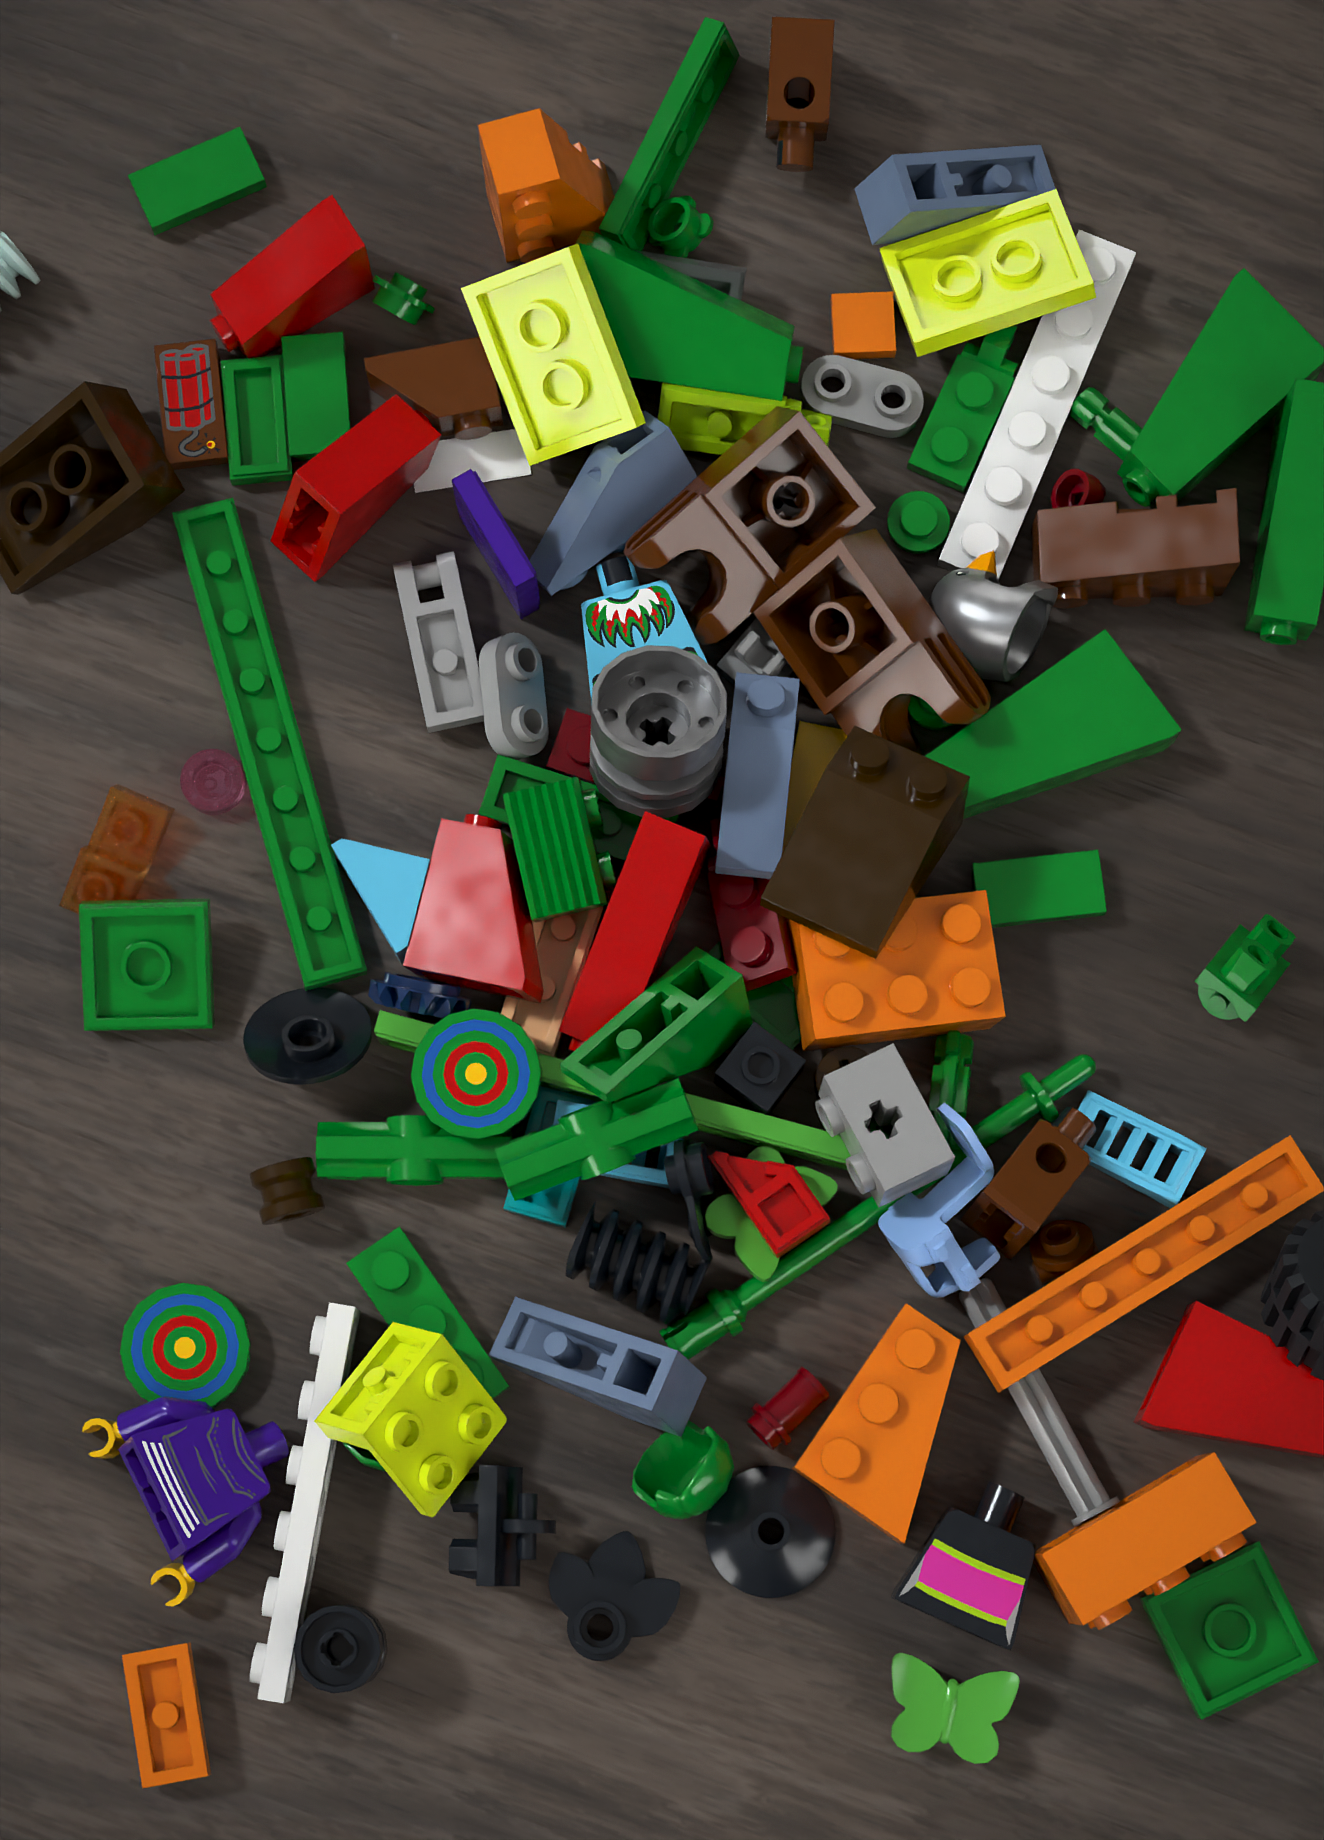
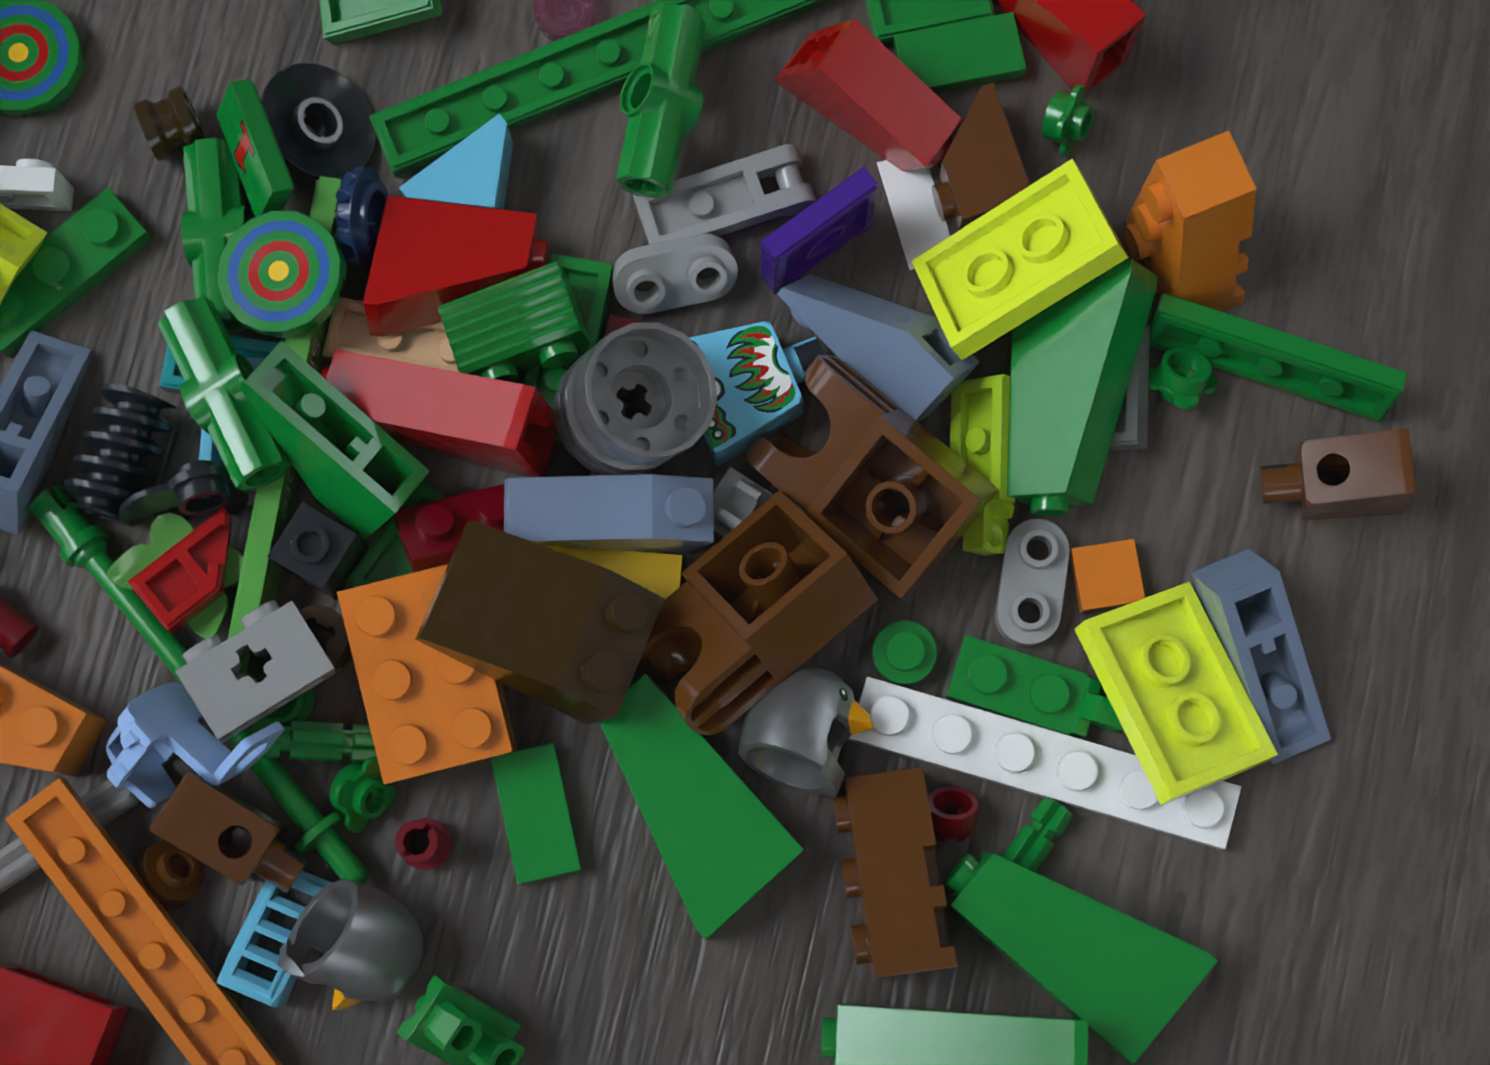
camera: 85 degrees right, 0 degrees up
(338, 682) = (661, 100): none -> green piece
(339, 1093) = (254, 148): none -> green tile
(1004, 1052) = (361, 794): none -> green plate
(1051, 1009) = (438, 847): none -> dark red pin
(1149, 1056) = (366, 941): none -> flat silver piece

